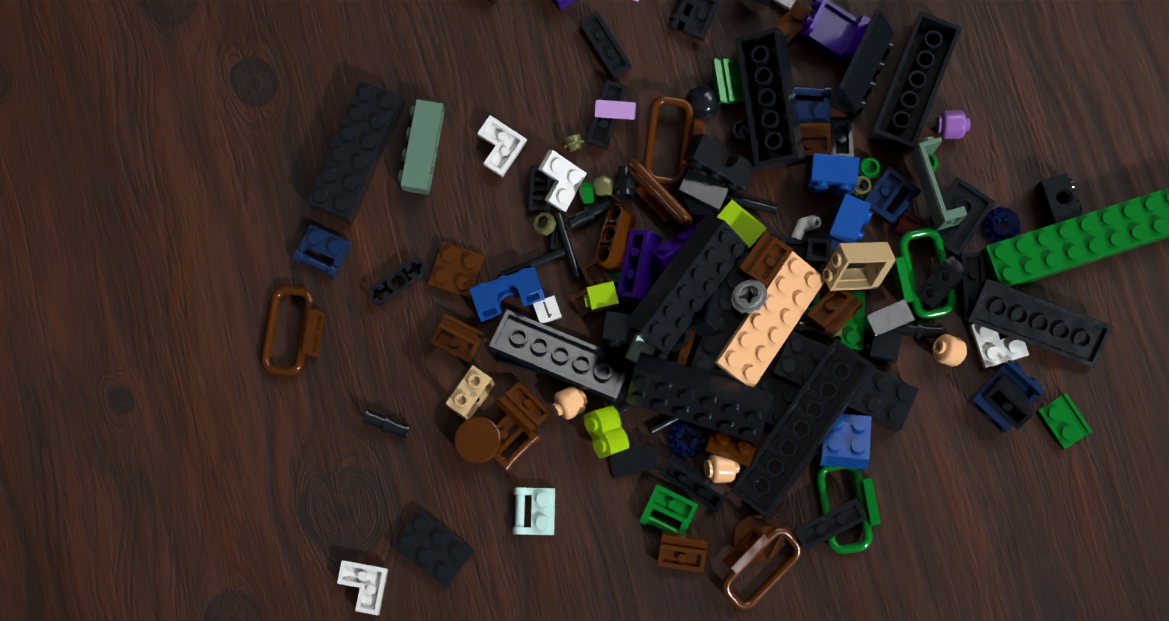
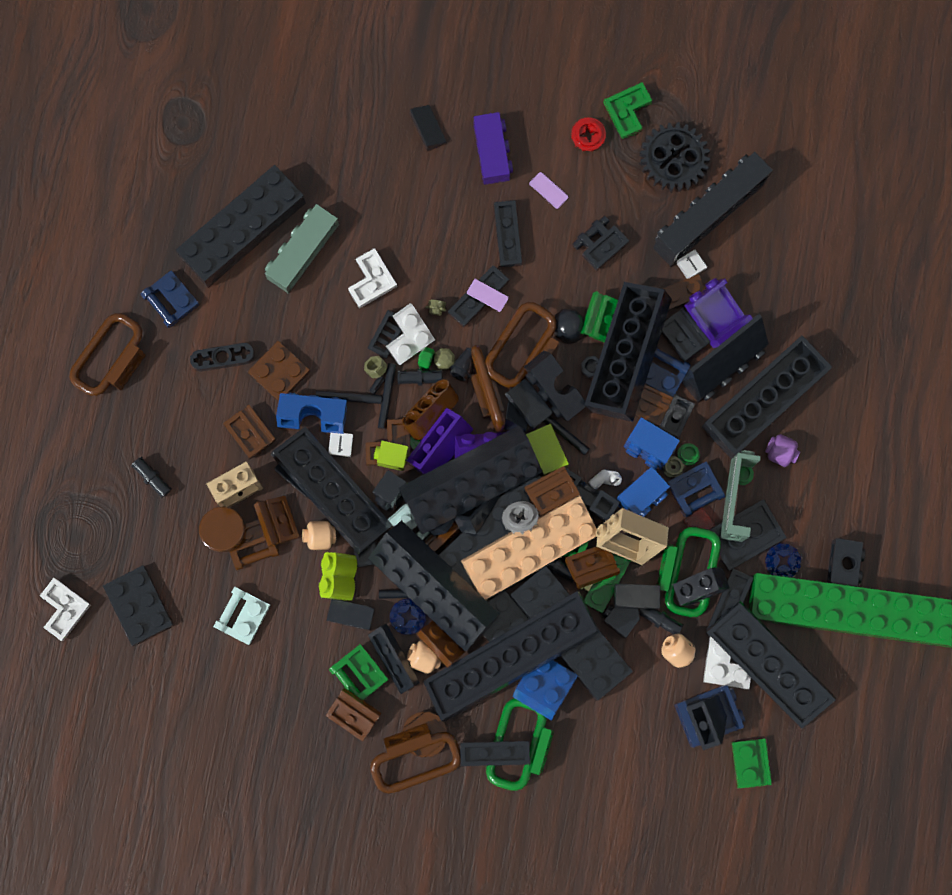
camera: 20 degrees right, 0 degrees up
(812, 61) = (684, 335): none -> black plate

